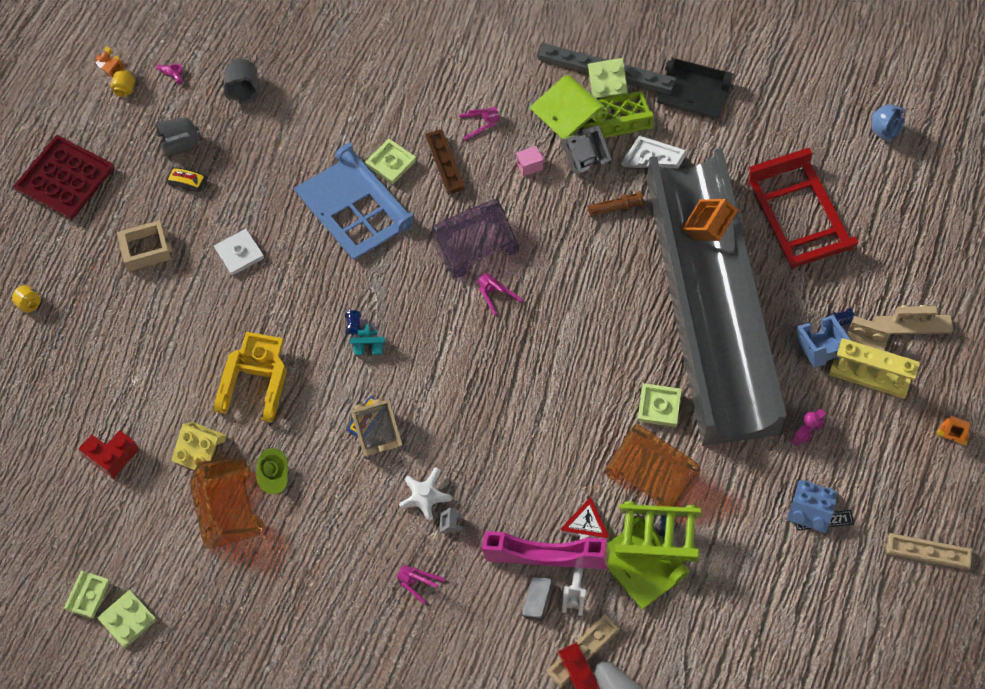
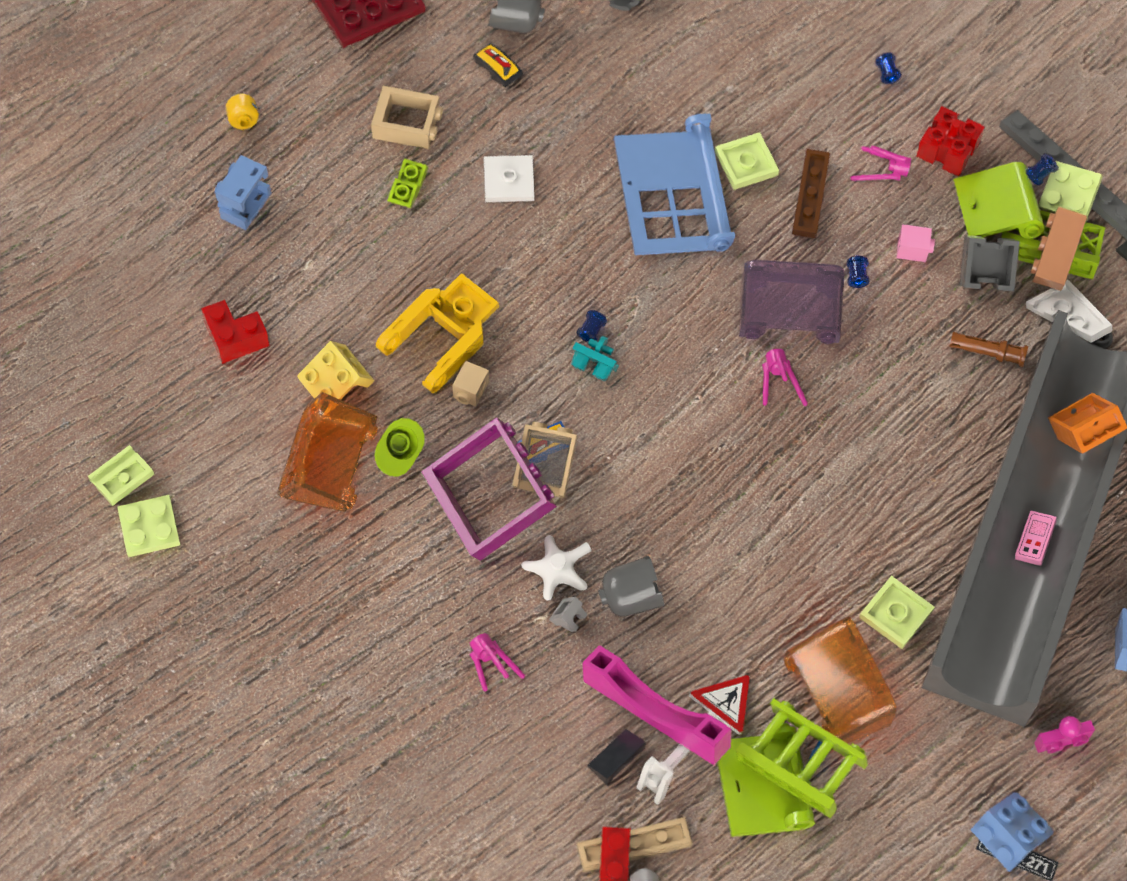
camera: 25 degrees right, 0 degrees up
(57, 353) = (240, 190): none -> medium blue piece
(171, 290) = (408, 184): none -> lime slope
(294, 403) = (470, 384): none -> tan brick
(307, 478) = (460, 454): none -> magenta window
(446, 56) = (888, 68): none -> clear blue bush
(483, 481) = (631, 588): none -> dark grey cylinder
(505, 197) = (858, 273): none -> clear blue bush
(514, 84) = (950, 141): none -> red brick
(583, 73) = (1049, 166): none -> clear blue bush
(624, 118) = (1058, 248): none -> nougat brick
(718, 310) = (1035, 538): none -> bright pink tile

